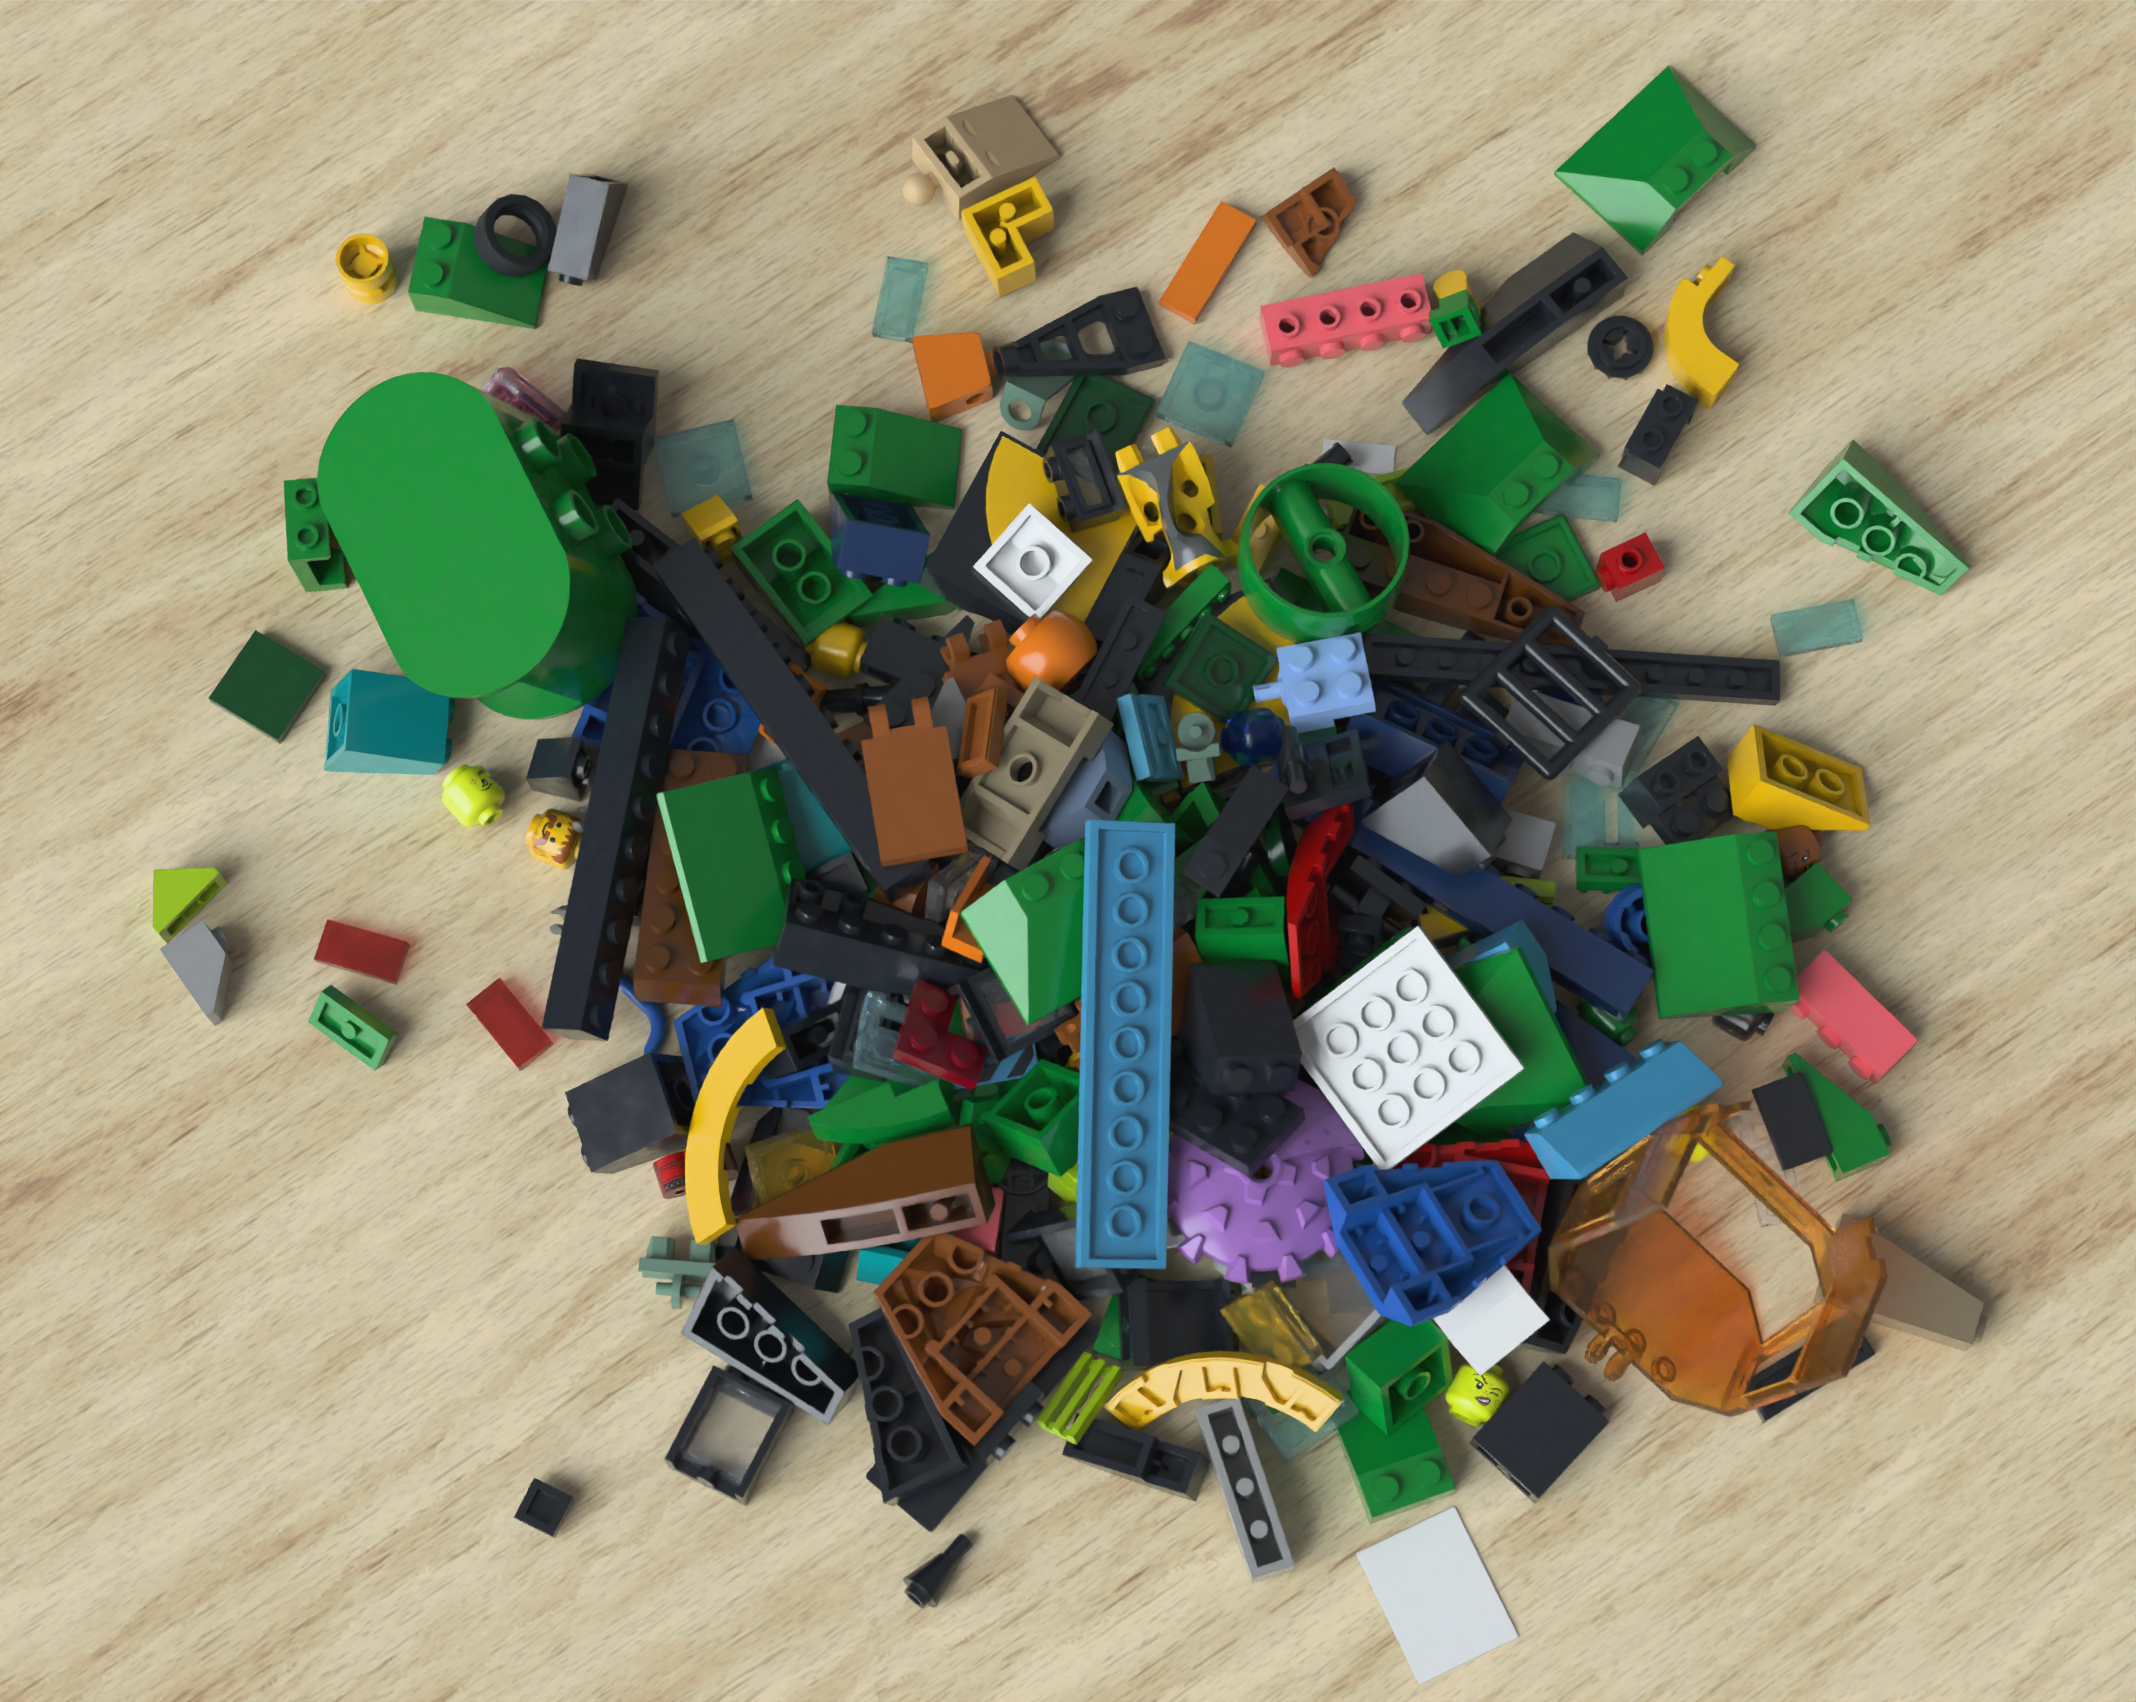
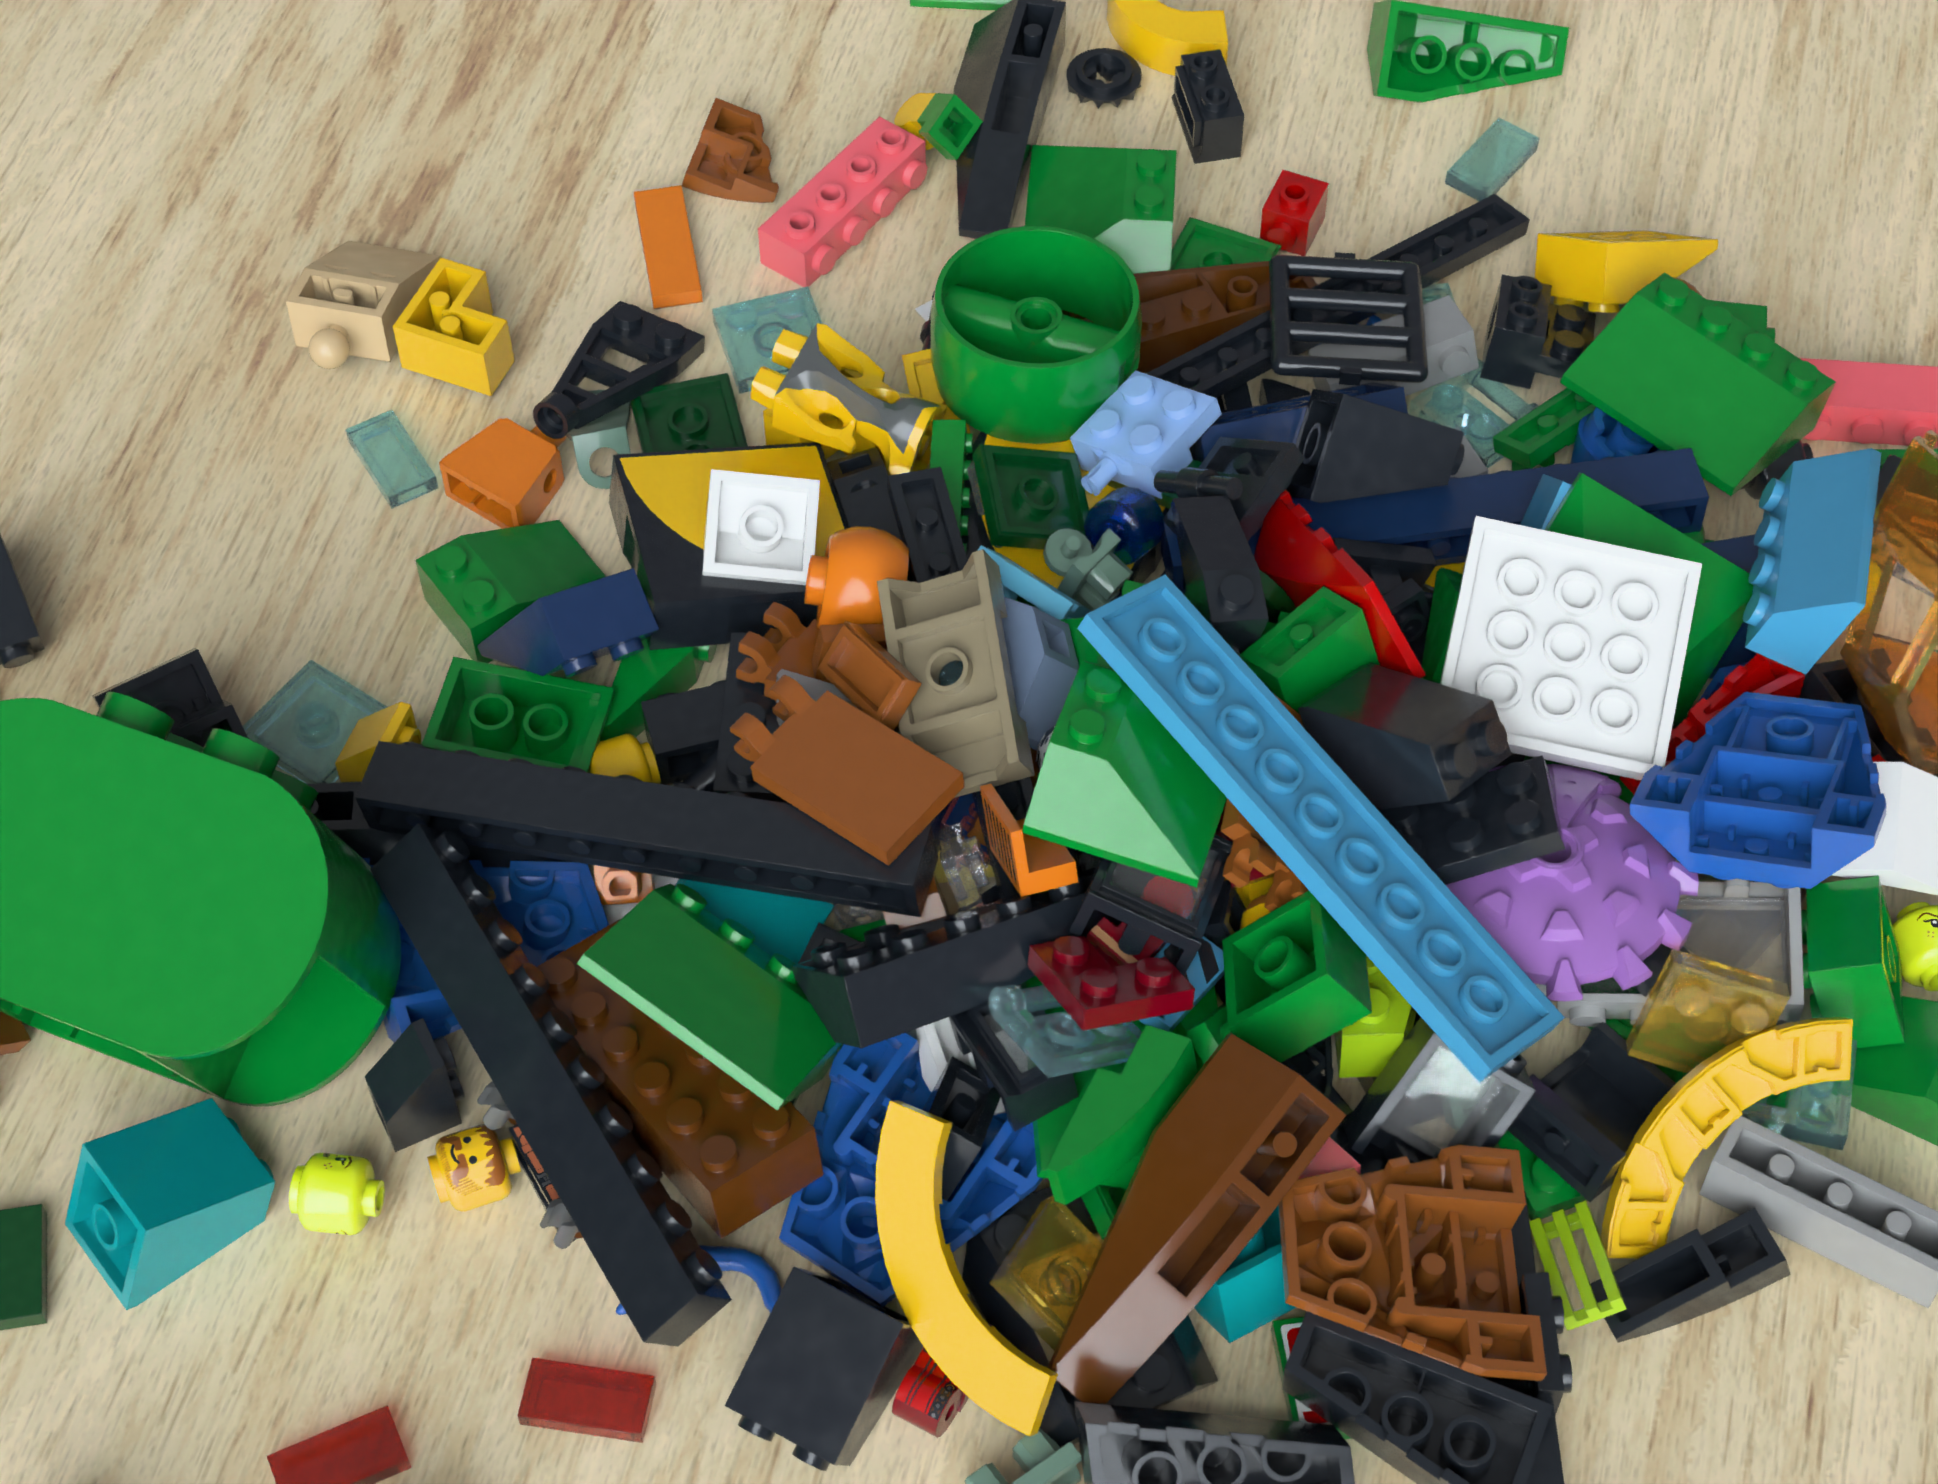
camera: 45 degrees left, 20 degrees down
(1084, 482) = (740, 434): black window -> none
(1586, 498) = (1202, 194): clear light blue tile -> none

